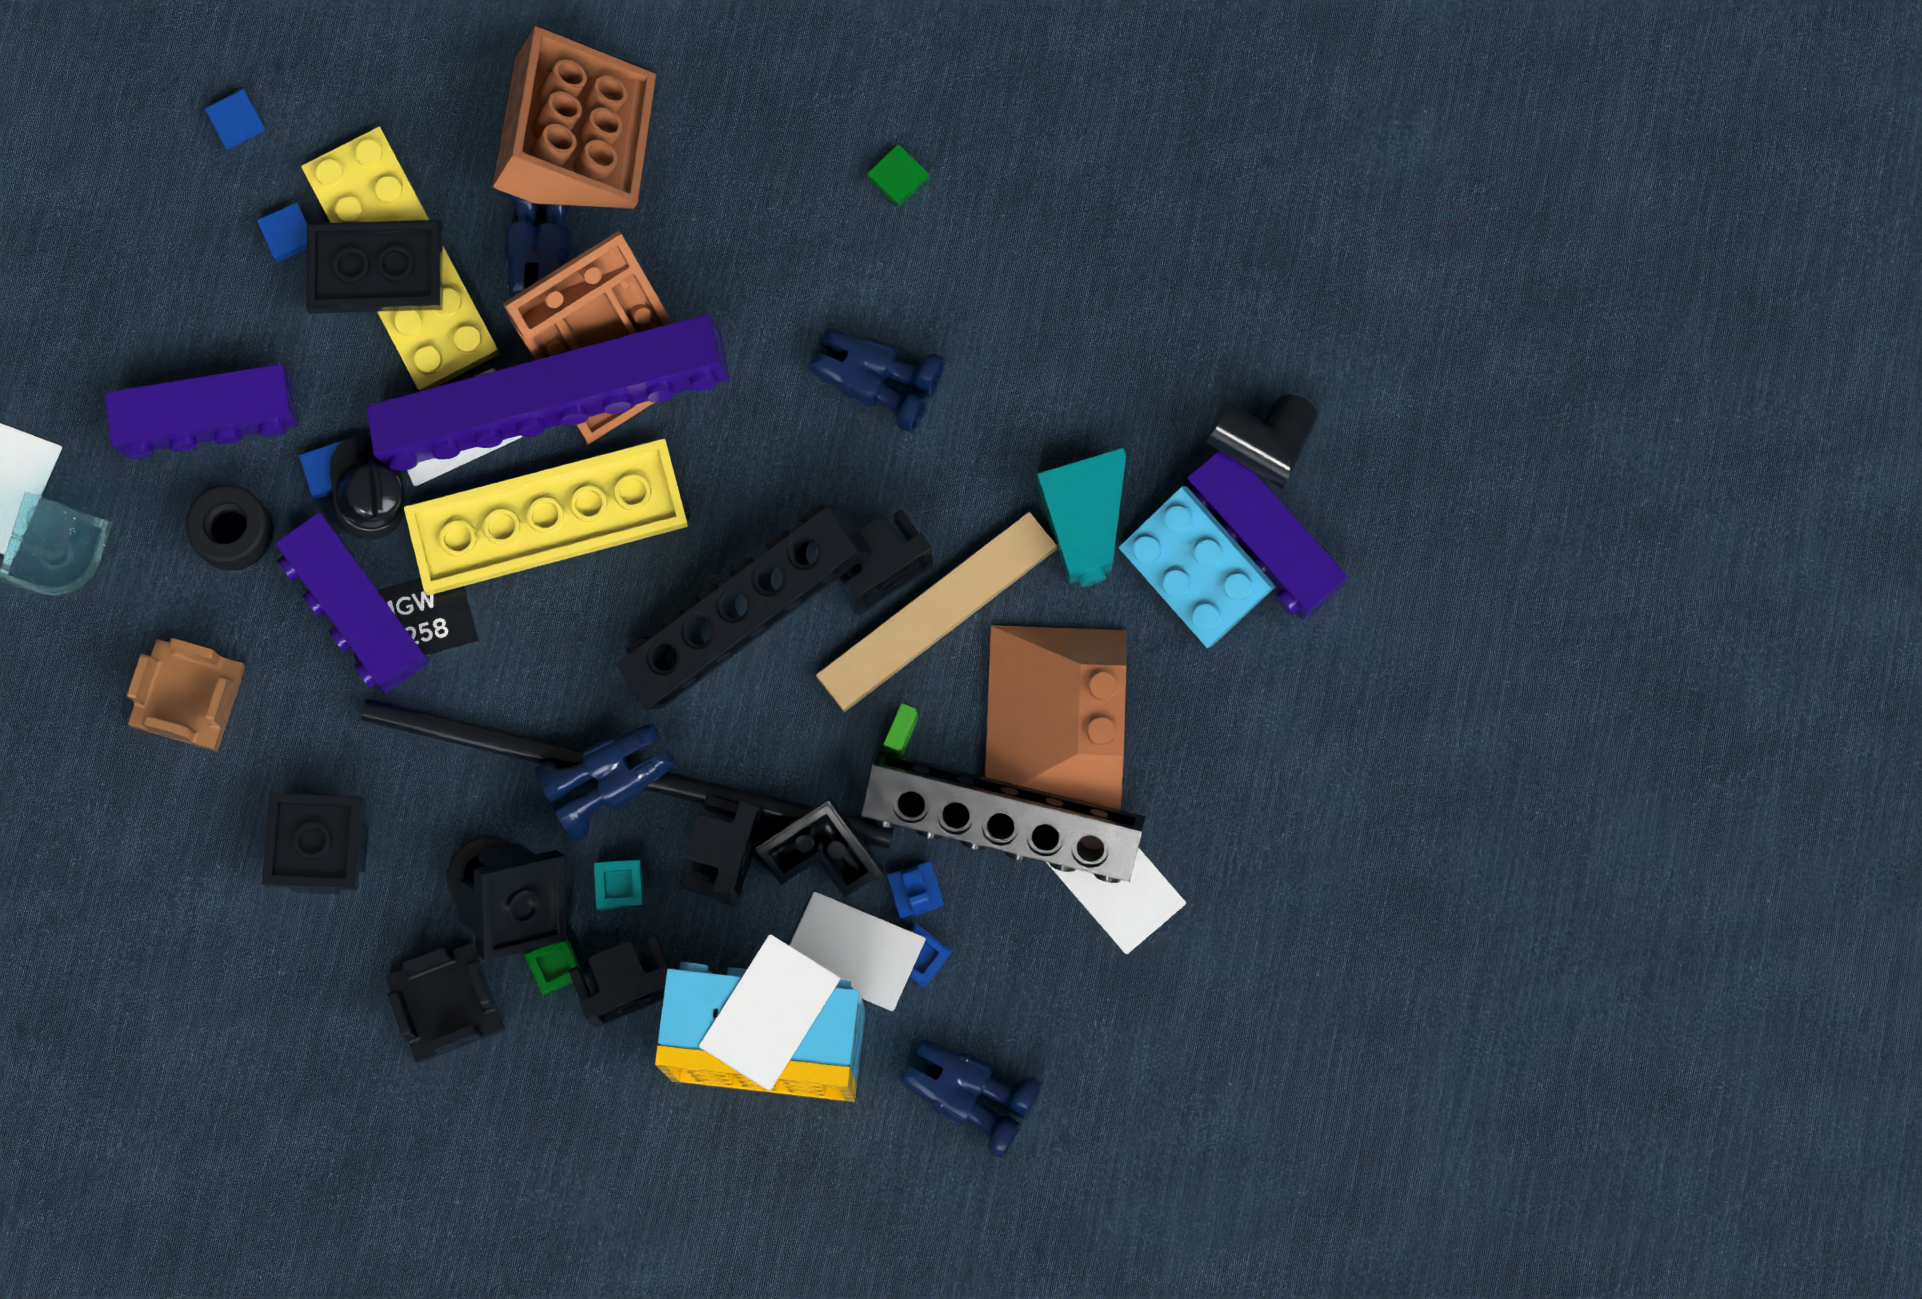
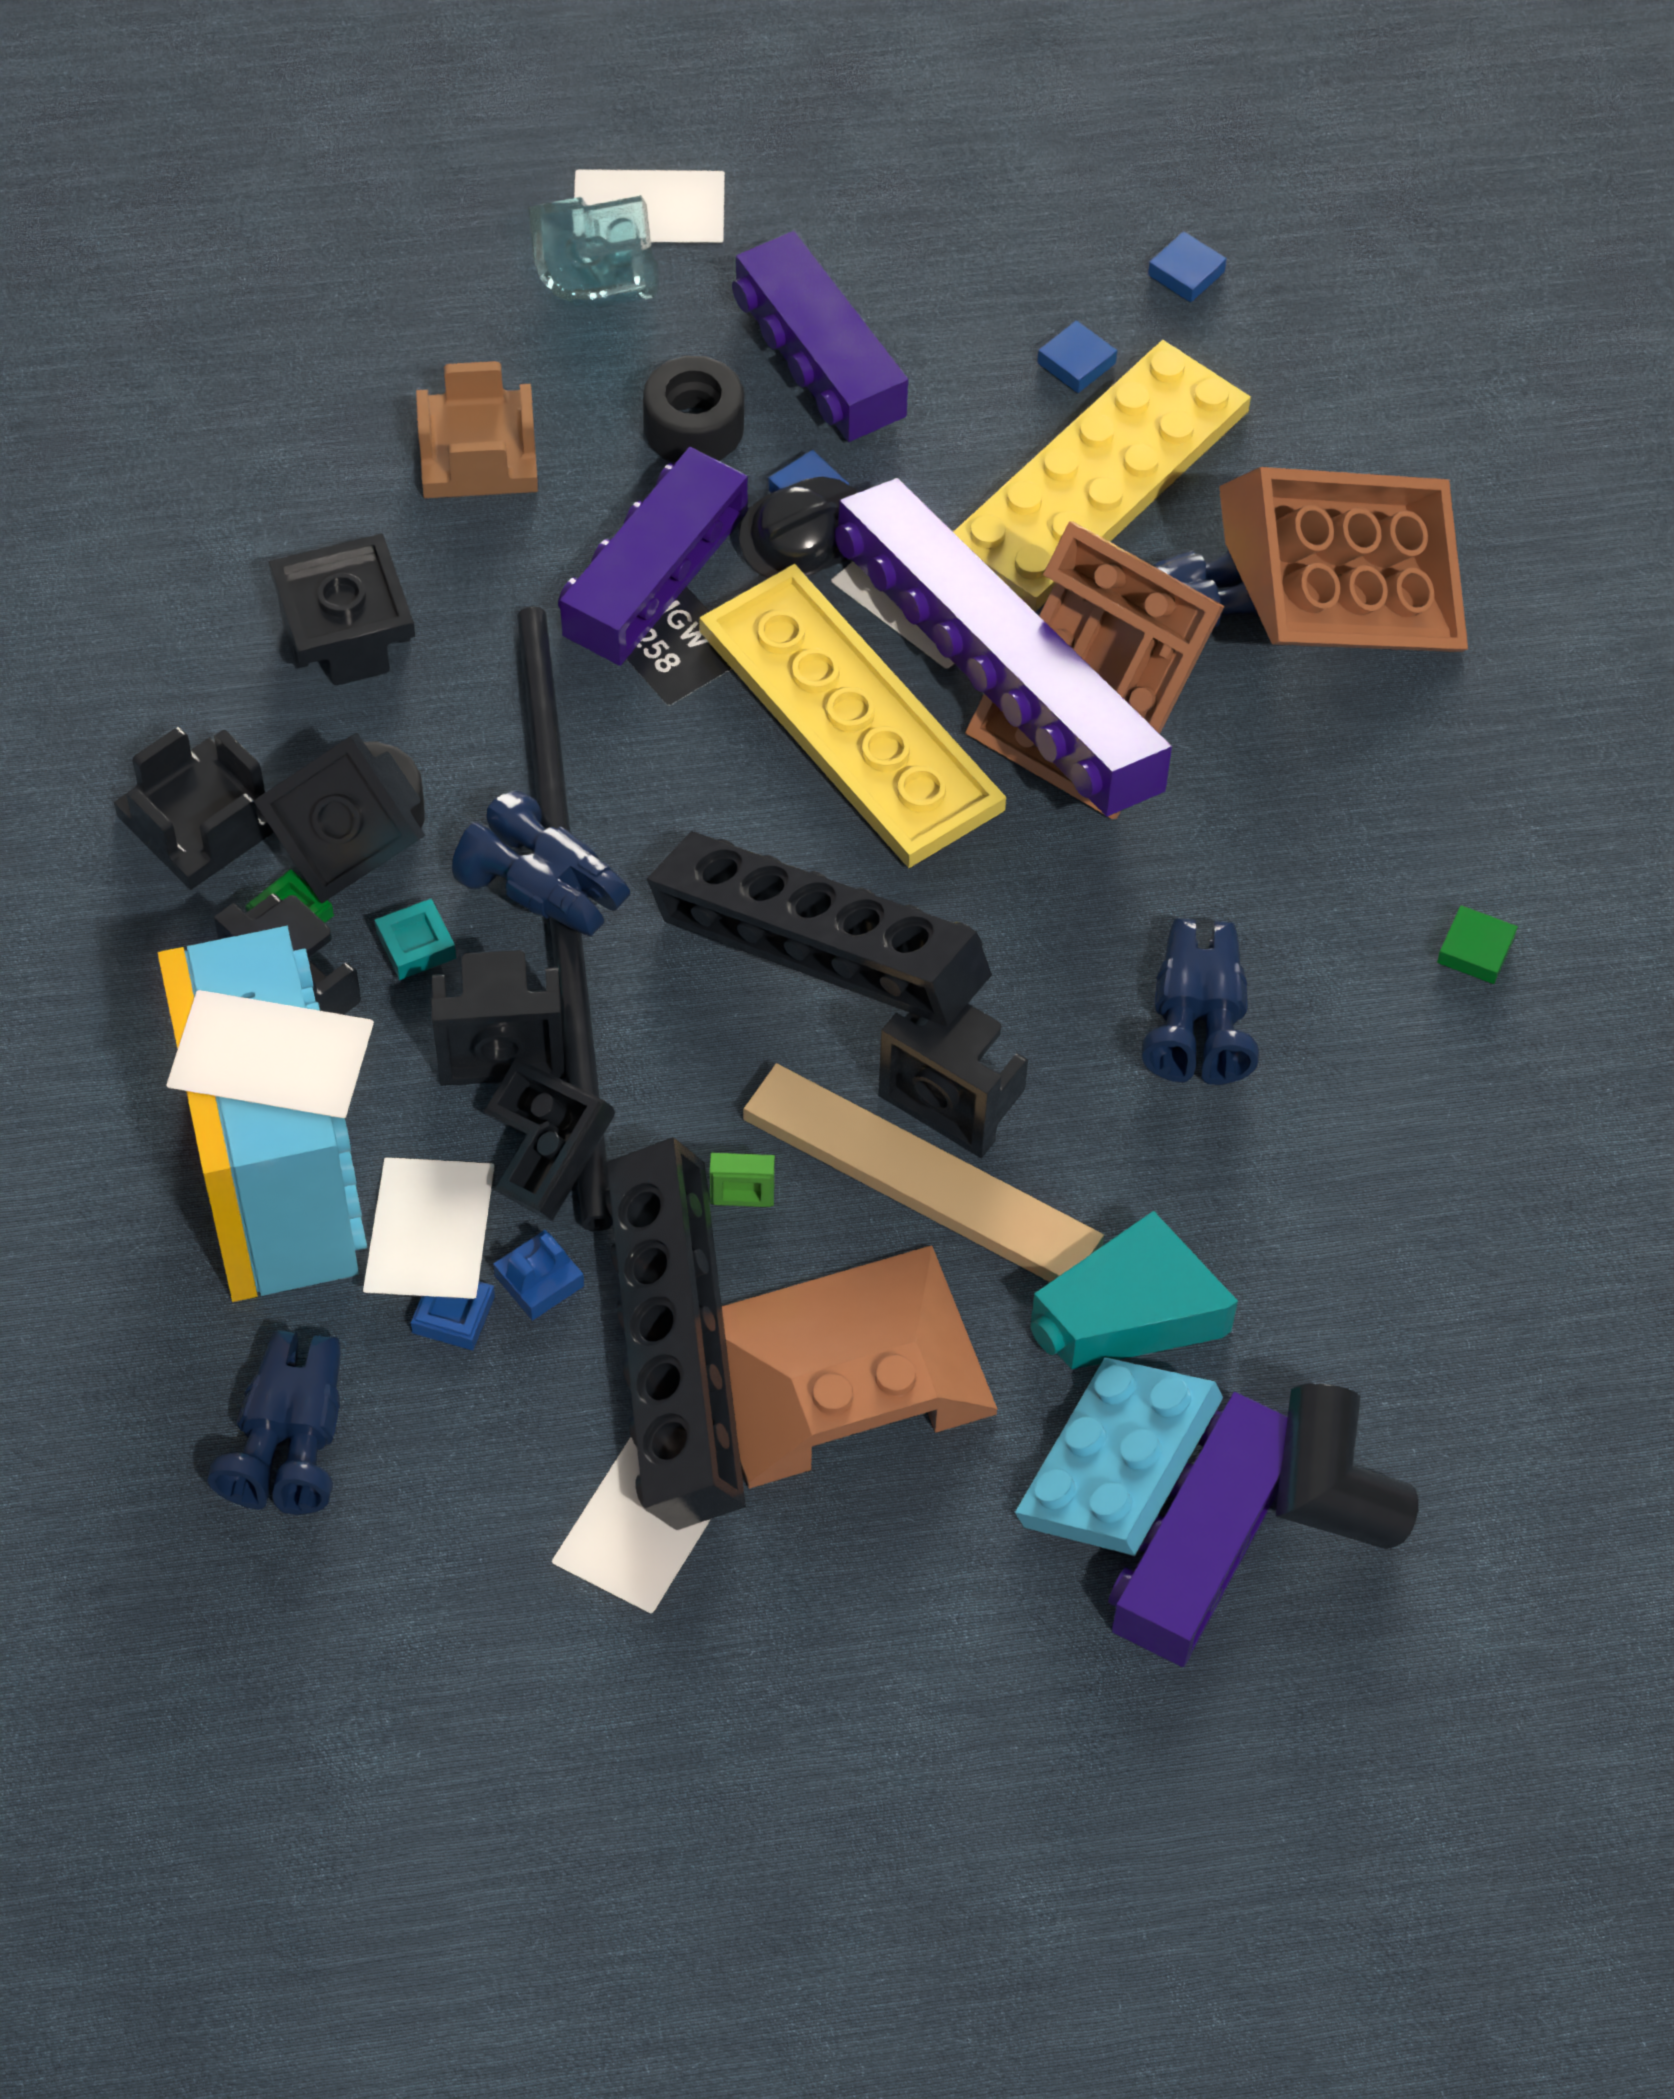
camera: 65 degrees right, 20 degrees down
(374, 266) = (1074, 438): black tile -> none

